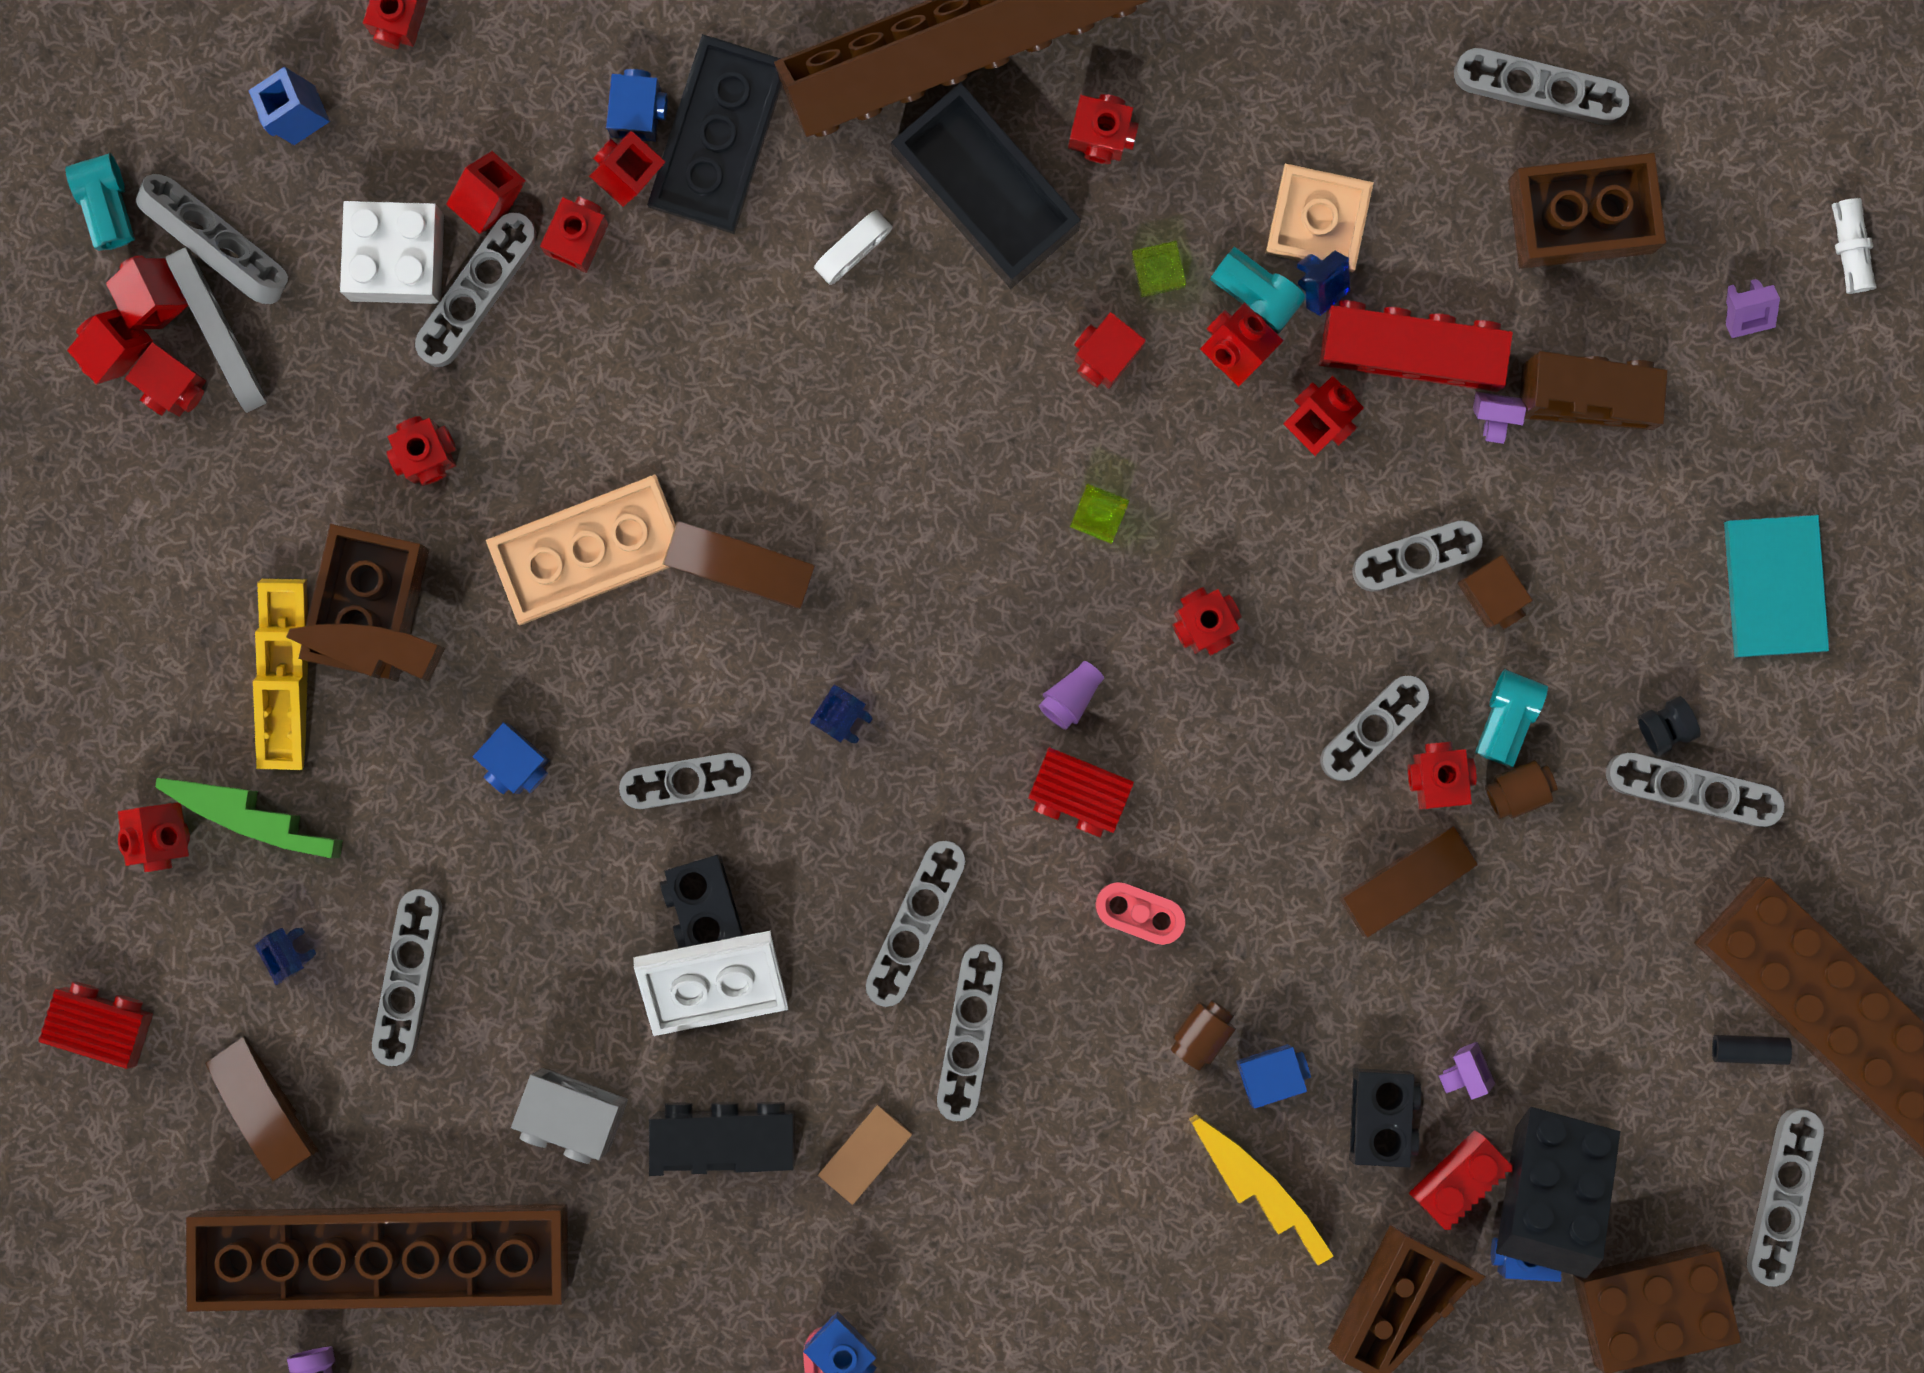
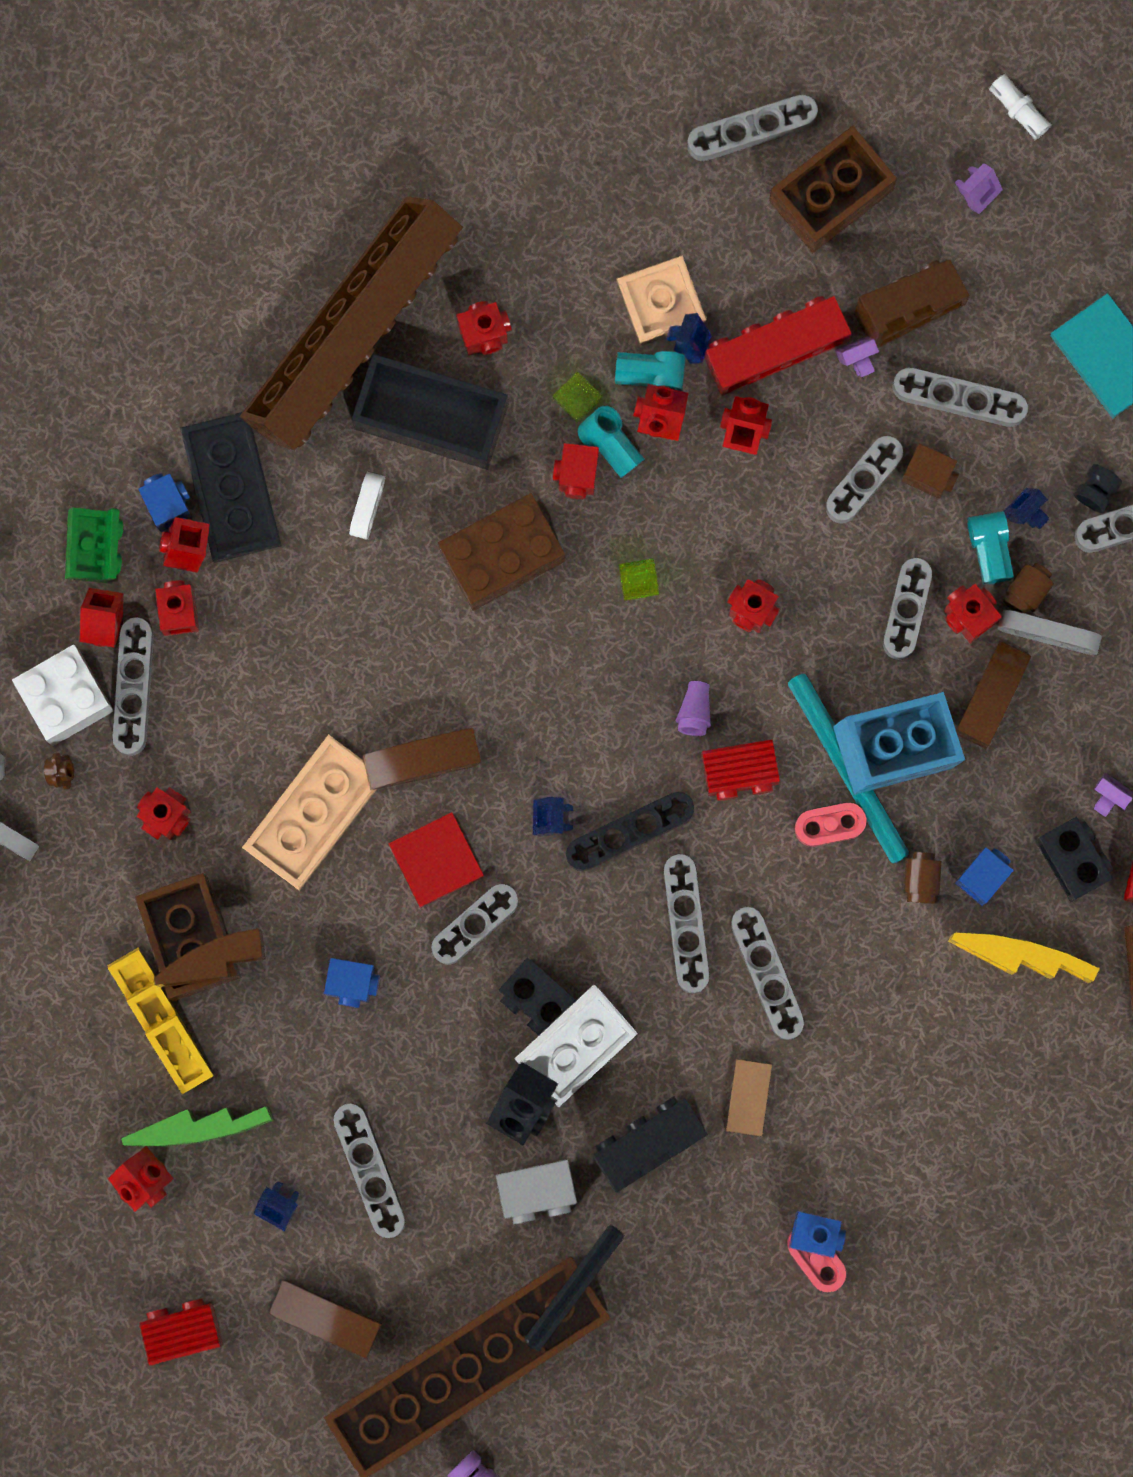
camera: 25 degrees left, 5 degrees down
(338, 333) = (59, 771): none -> reddish brown plate
(527, 105) = (93, 545): none -> green bracket
(541, 1248) = (574, 1287): none -> black axle
(613, 1013) = (524, 1104): none -> black brick
(687, 684) = (436, 860): none -> red tile
(917, 784) = (627, 827): none -> black beam
(967, 390) = (501, 551): none -> reddish brown brick
(1163, 327) = (604, 431): none -> teal piece
(1198, 863) = (868, 801): none -> teal axle
(1270, 873) = (898, 743): none -> dark azure brick
(1514, 852) = (1049, 632): none -> light grey beam
(1576, 699) = (1027, 509): none -> clear blue tile
(1586, 523) = (961, 390): none -> light grey beam

